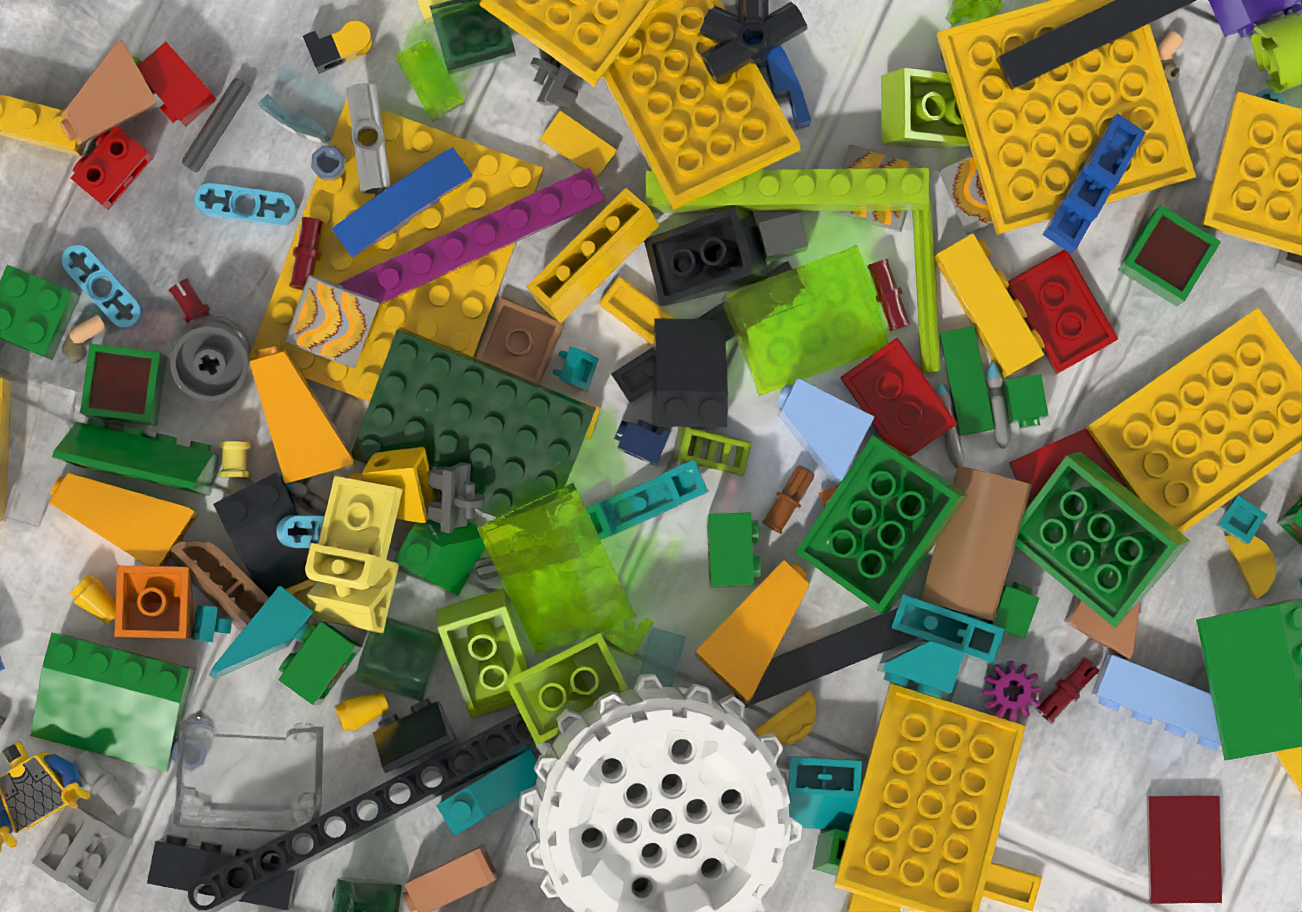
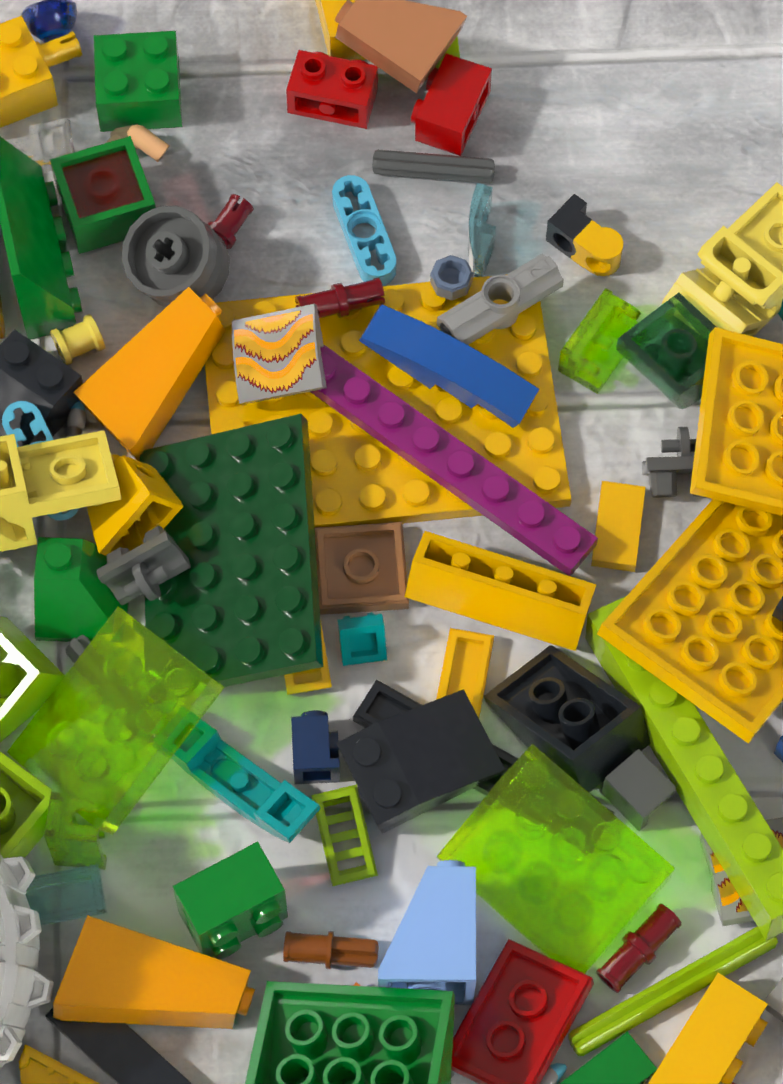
camera: 65 degrees right, 20 degrees down
(78, 274) = (205, 155): medium azure beam -> none

